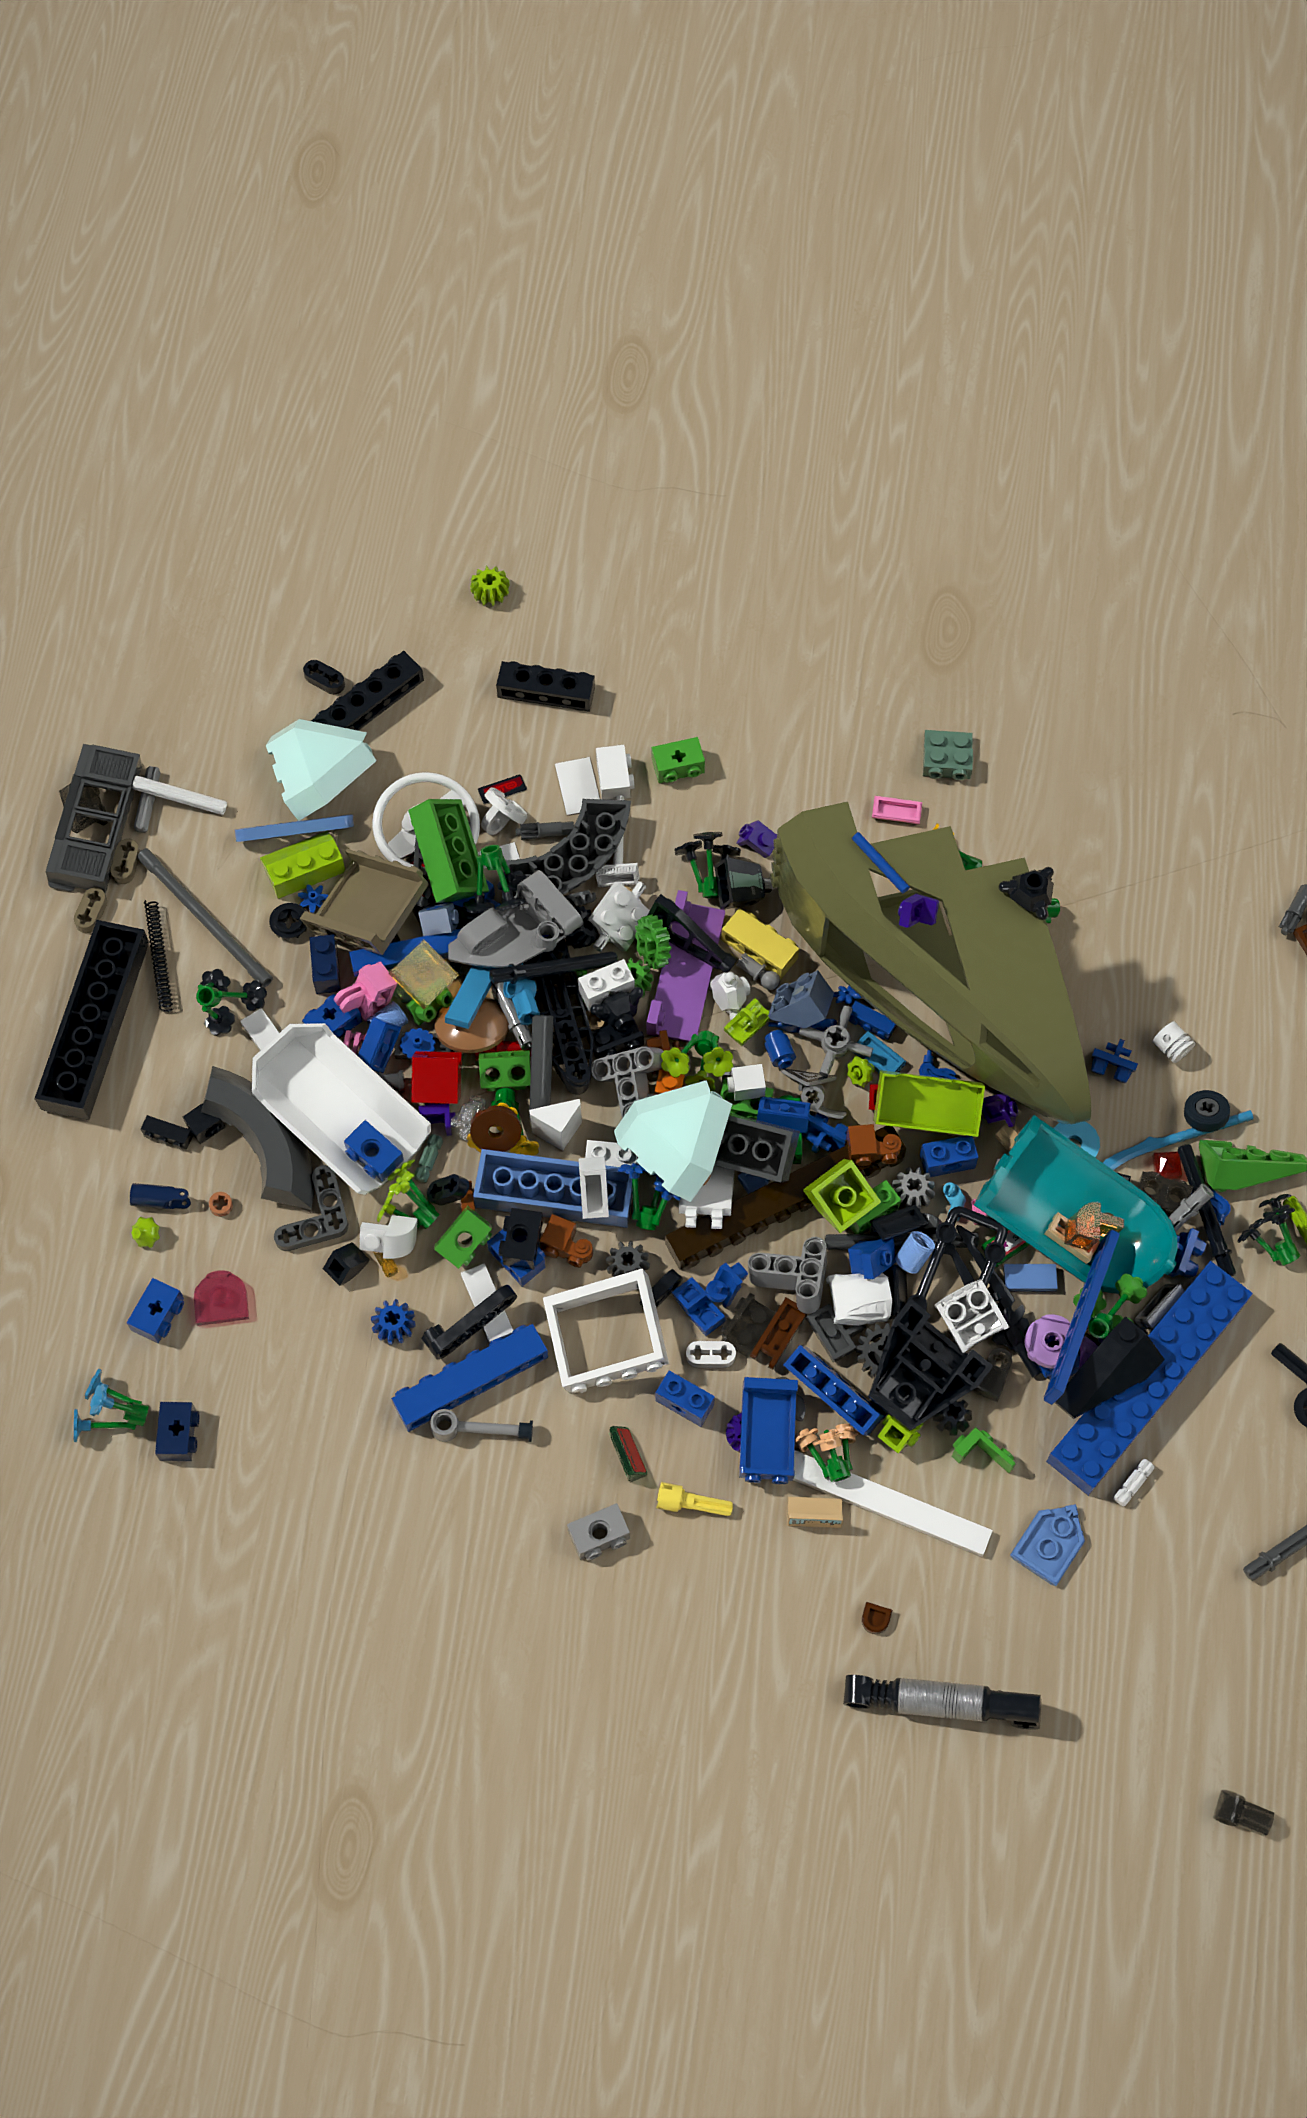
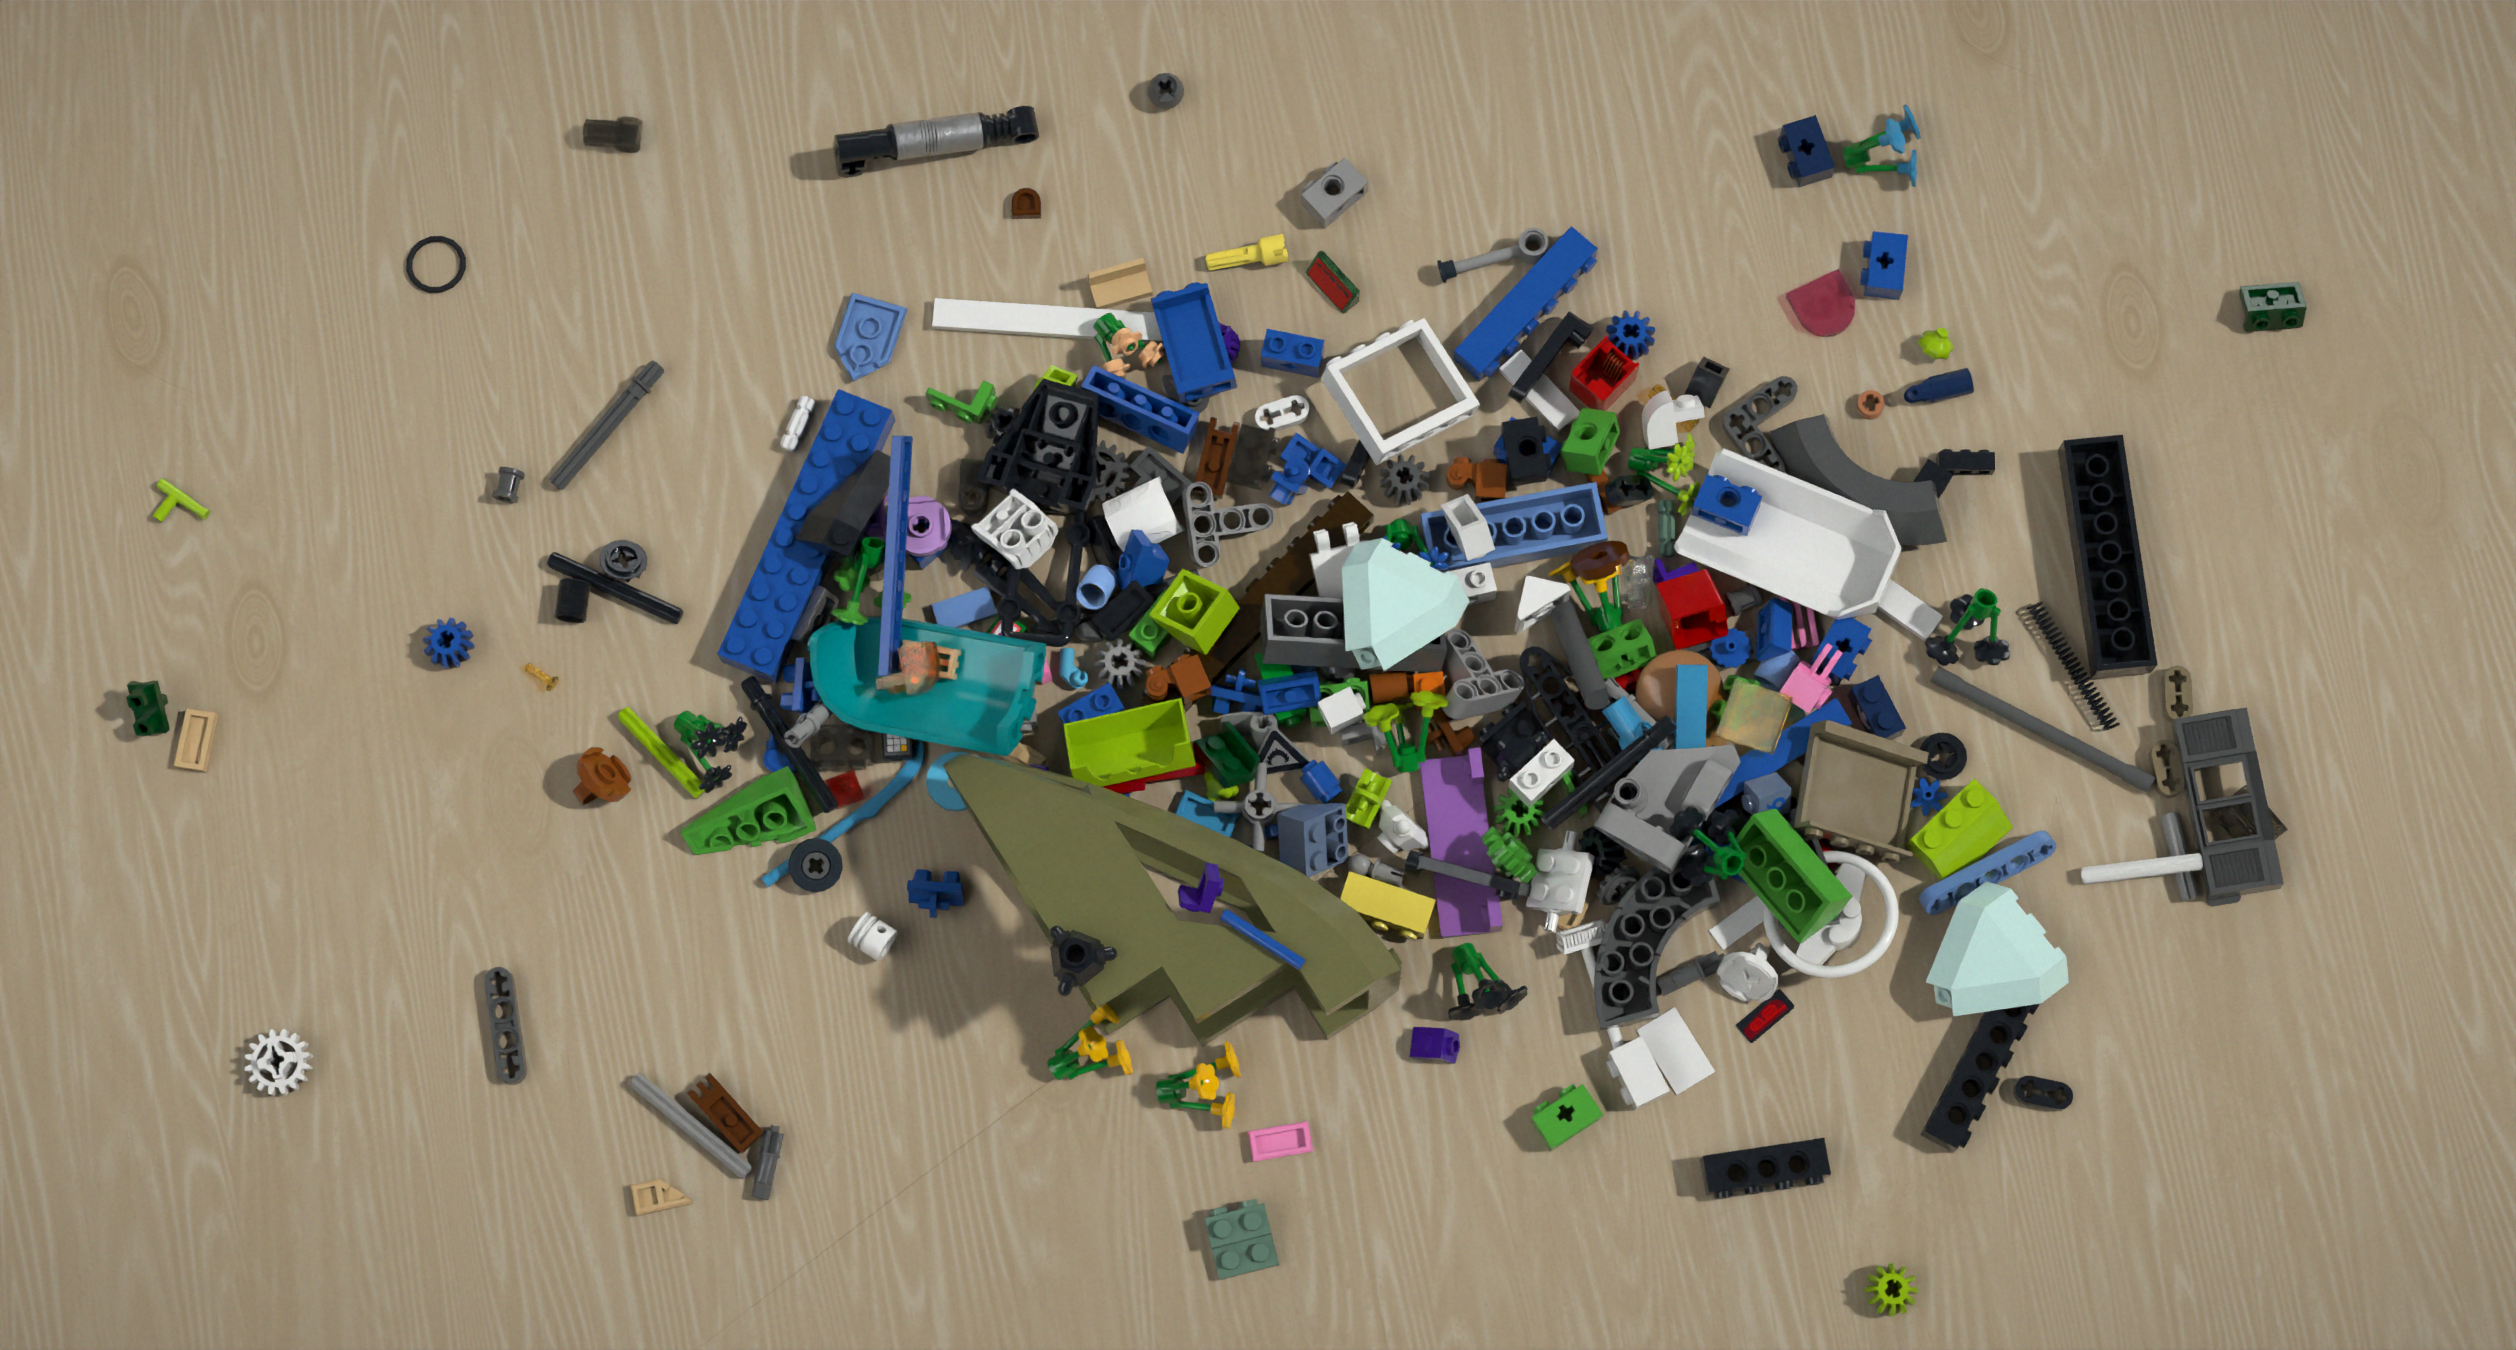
camera: 165 degrees right, 10 degrees up
(431, 1288) = (1602, 376): none -> red piece
(715, 1690) = (1167, 100): none -> dark grey piece
(740, 883) = (1433, 967): black torso -> none
(849, 1085) = (1227, 756): none -> dark green bracket

